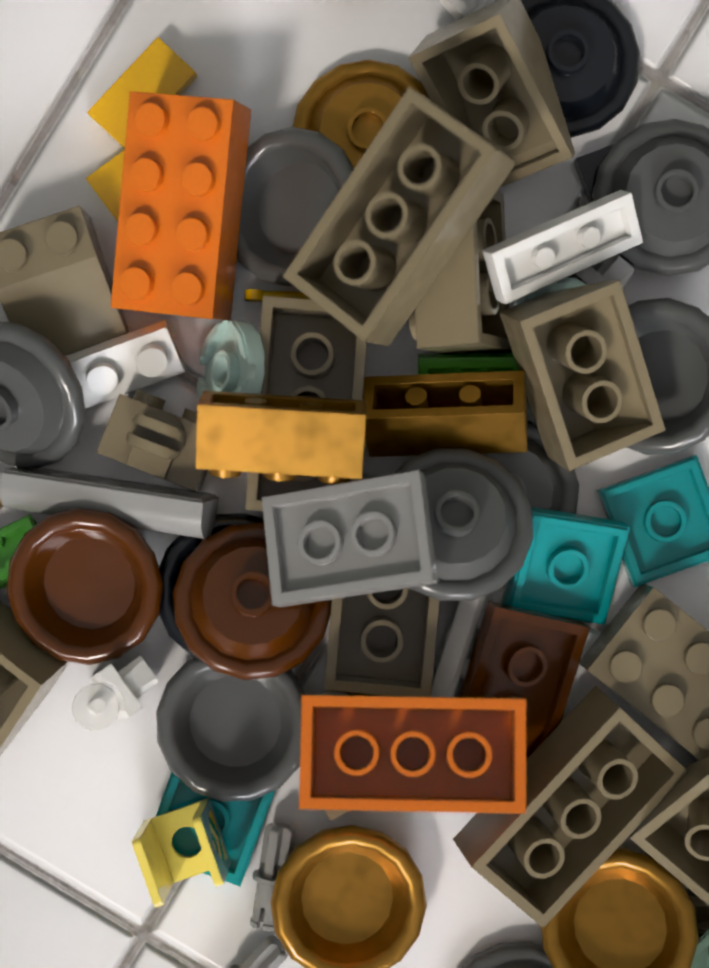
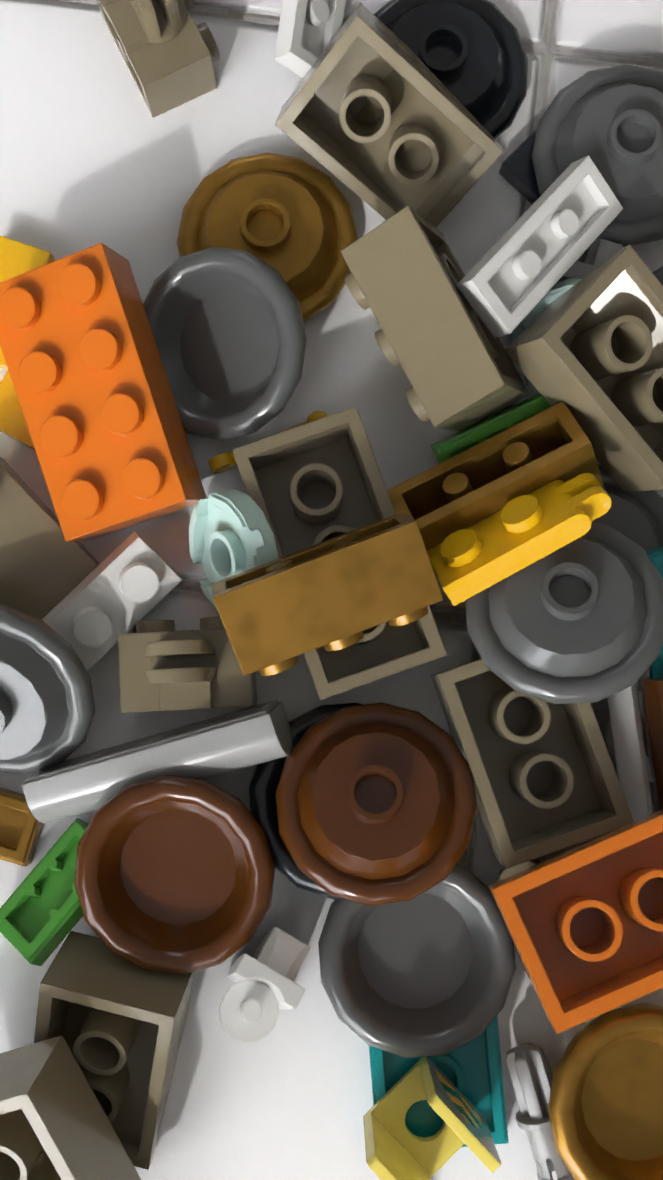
camera: 25 degrees left, 5 degrees down
(349, 539) = (461, 678): light grey plate -> none
(398, 218) = (350, 275): dark tan brick -> none
(444, 453) = (517, 535): none -> yellow hinge

